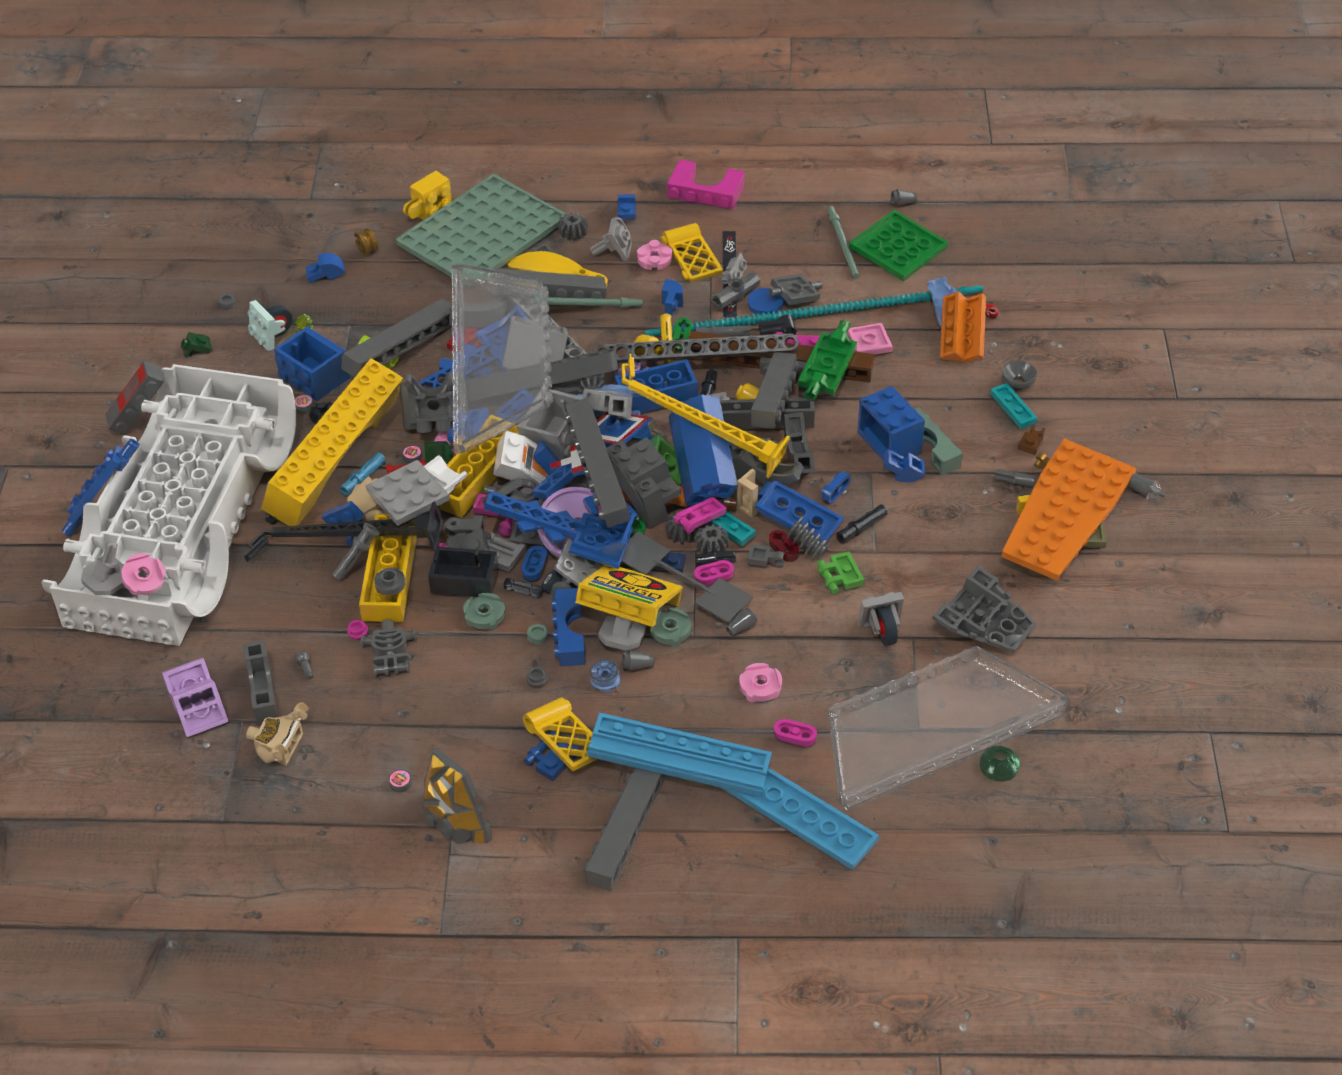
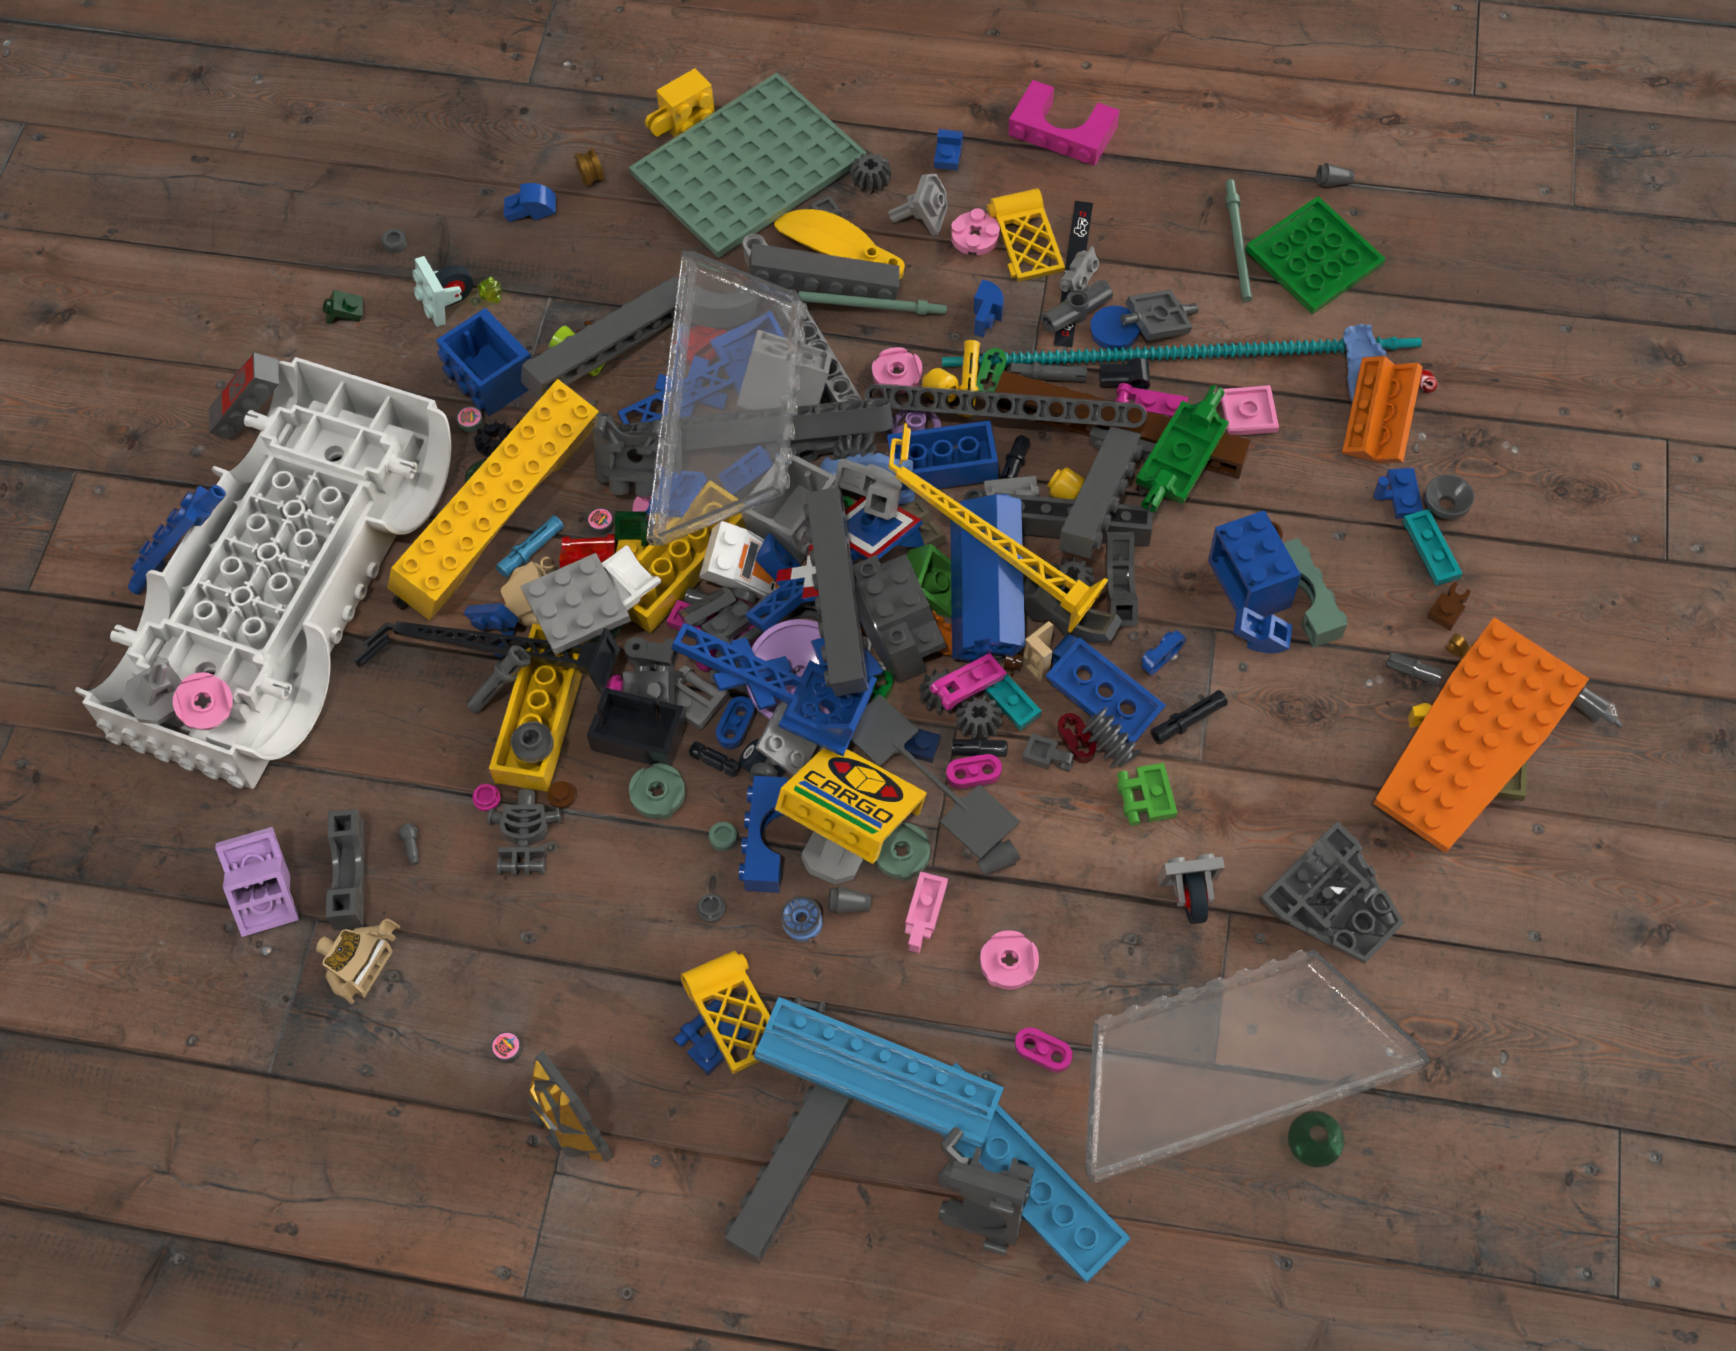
camera: 10 degrees right, 15 degrees up
(414, 621) = (561, 794): none -> reddish brown plate
(613, 334) = (901, 359): none -> bright pink plate
(693, 659) = (924, 909): none -> bright pink hinge
(770, 832) = (991, 1199): none -> dark grey piece
(985, 375) = (1402, 491): none -> blue plate

